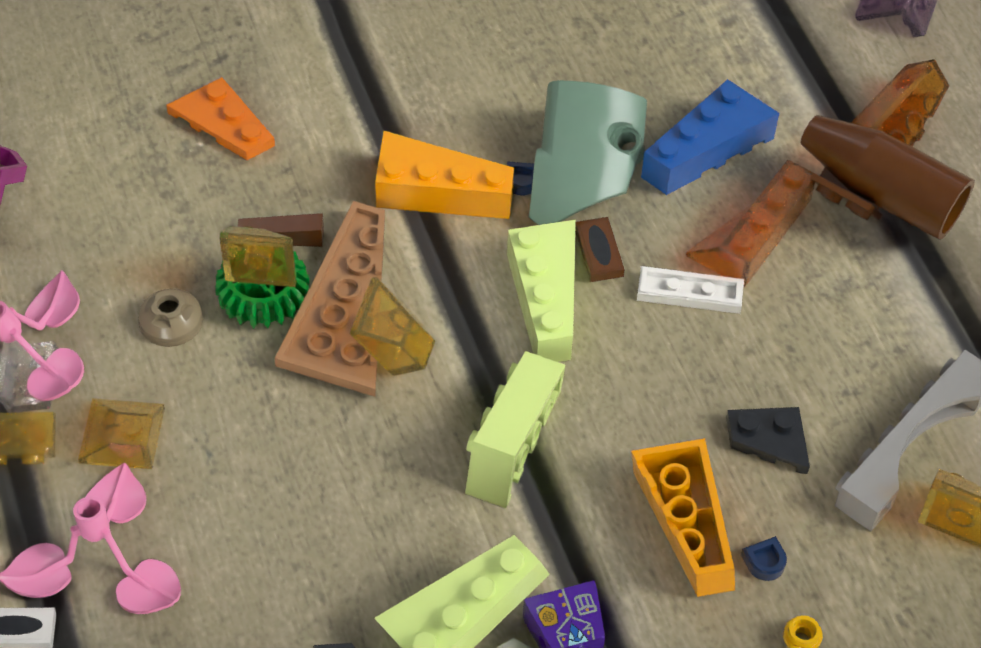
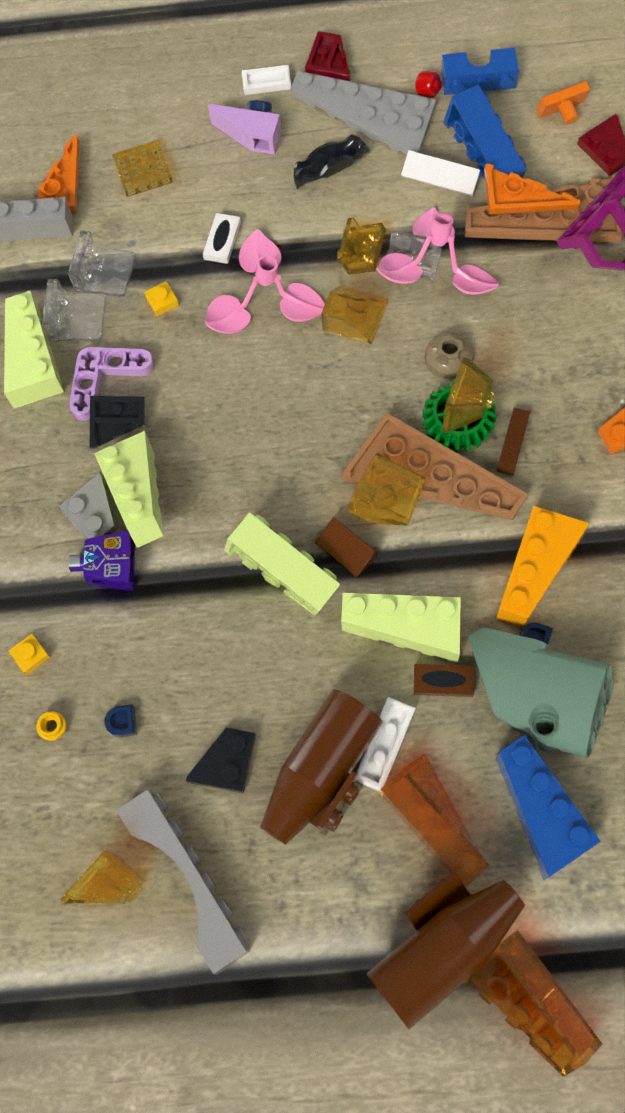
camera: 115 degrees right, 15 degrees up
(467, 370) = (346, 547): none -> reddish brown slope
(687, 506) = (166, 669): light orange wedge -> none
(756, 325) = (319, 770): none -> reddish brown piece

